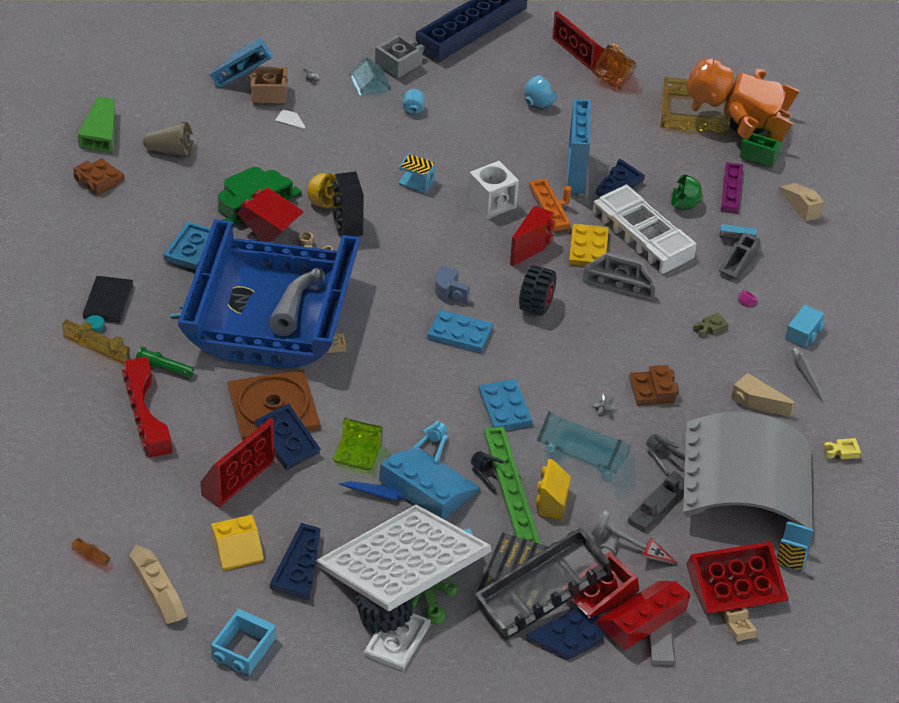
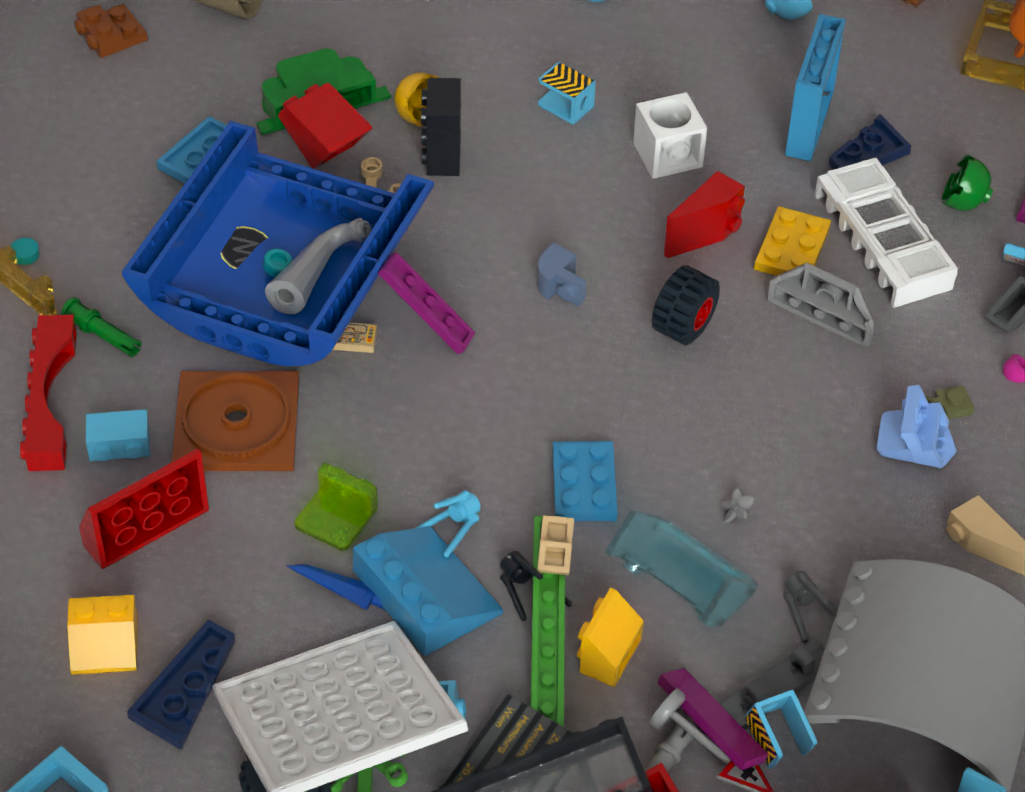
camera: 15 degrees right, 5 degrees up
(108, 298) = (58, 215): black tile -> none
(201, 425) = (118, 435): none -> medium azure brick
(268, 304) = (275, 261): none -> teal tile
(291, 438) = (236, 476): dark blue plate -> none
(376, 313) = (426, 303): none -> magenta tile
(460, 331) = (554, 349): dark azure plate -> none
(503, 442) = (555, 545): none -> tan slope
(547, 200) = (753, 171): orange plate -> none
(629, 526) = (714, 719): none -> magenta tile
(654, 386) = (826, 489): dark orange plate -> none
(678, 517) = (795, 719): none -> medium azure piece
(699, 343) = (916, 432): none -> light blue piece

